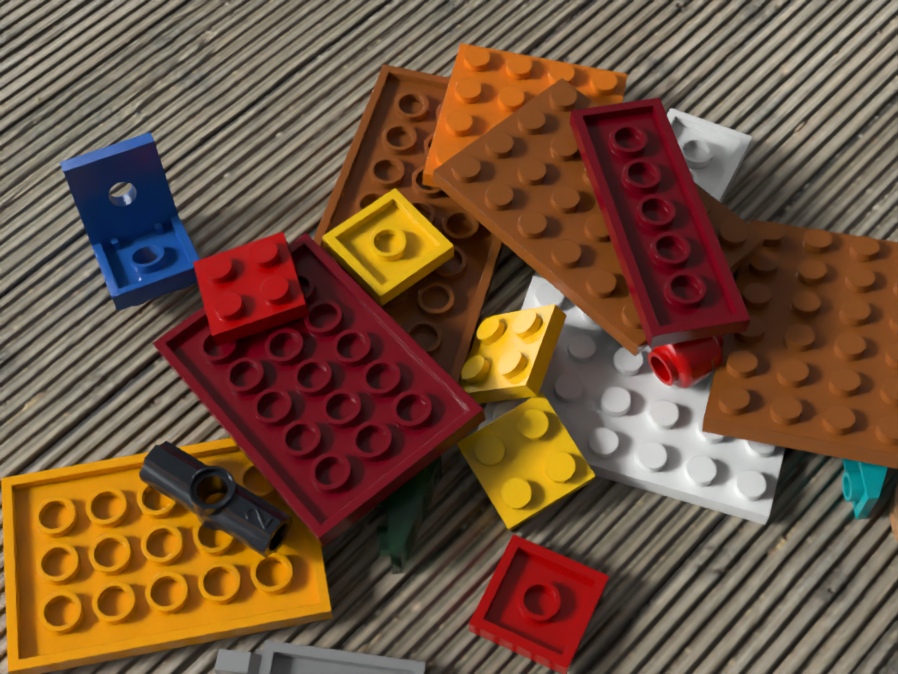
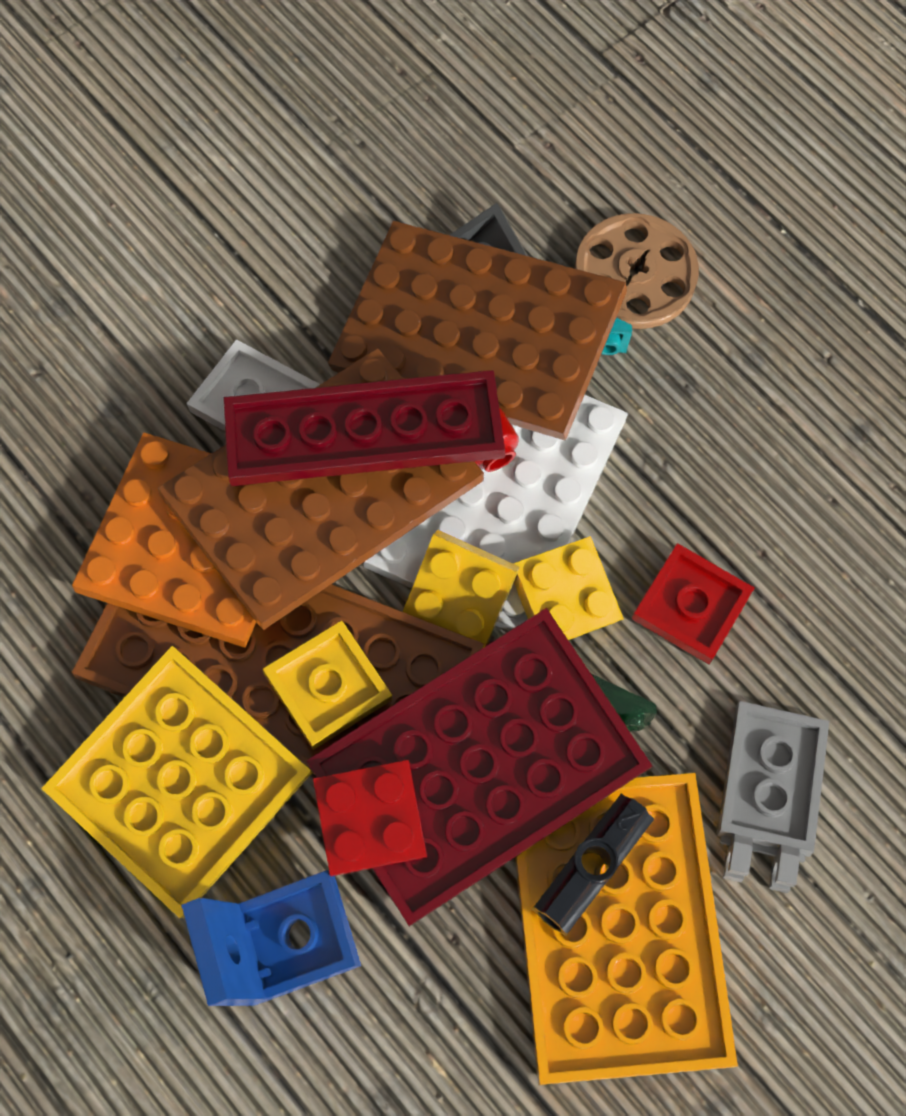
camera: 90 degrees left, 10 degrees up
(287, 150) = (177, 781): none -> yellow plate

